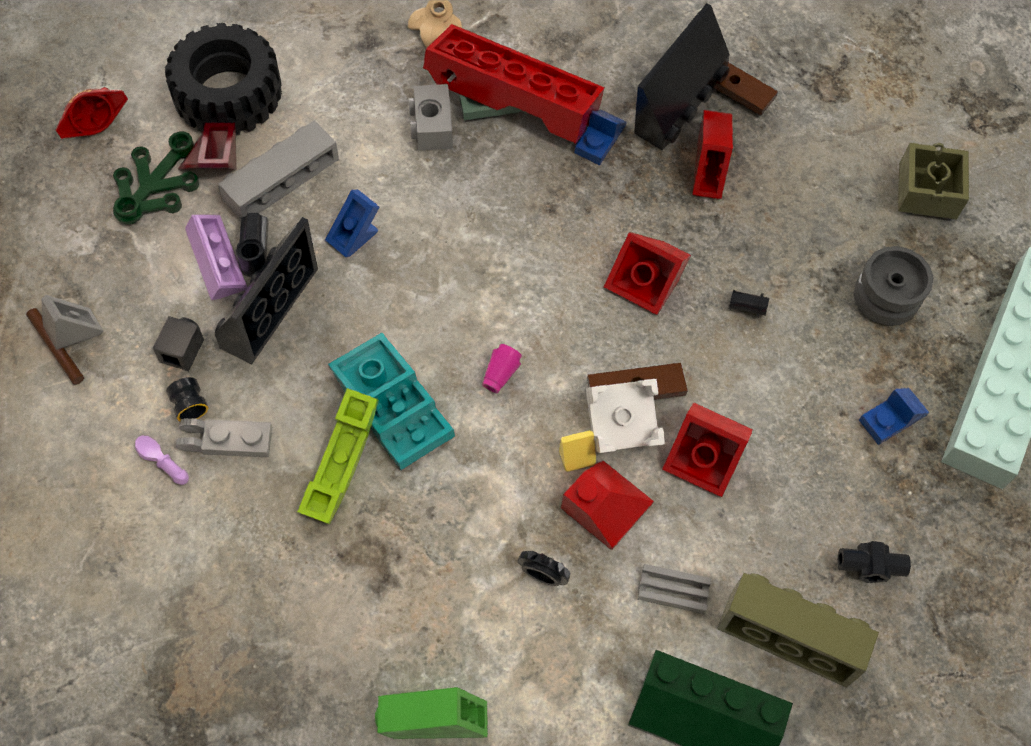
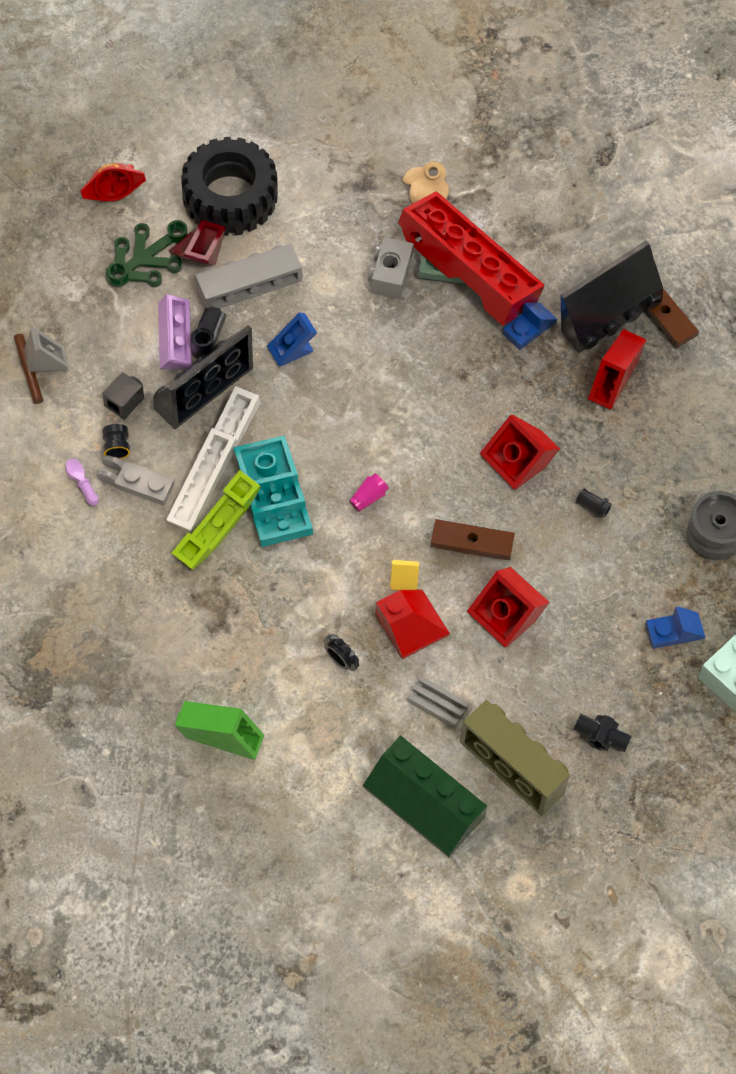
camera: 20 degrees right, 0 degrees up
(309, 386) = (213, 458): none -> white slope
(624, 415) = (449, 559): white panel -> none

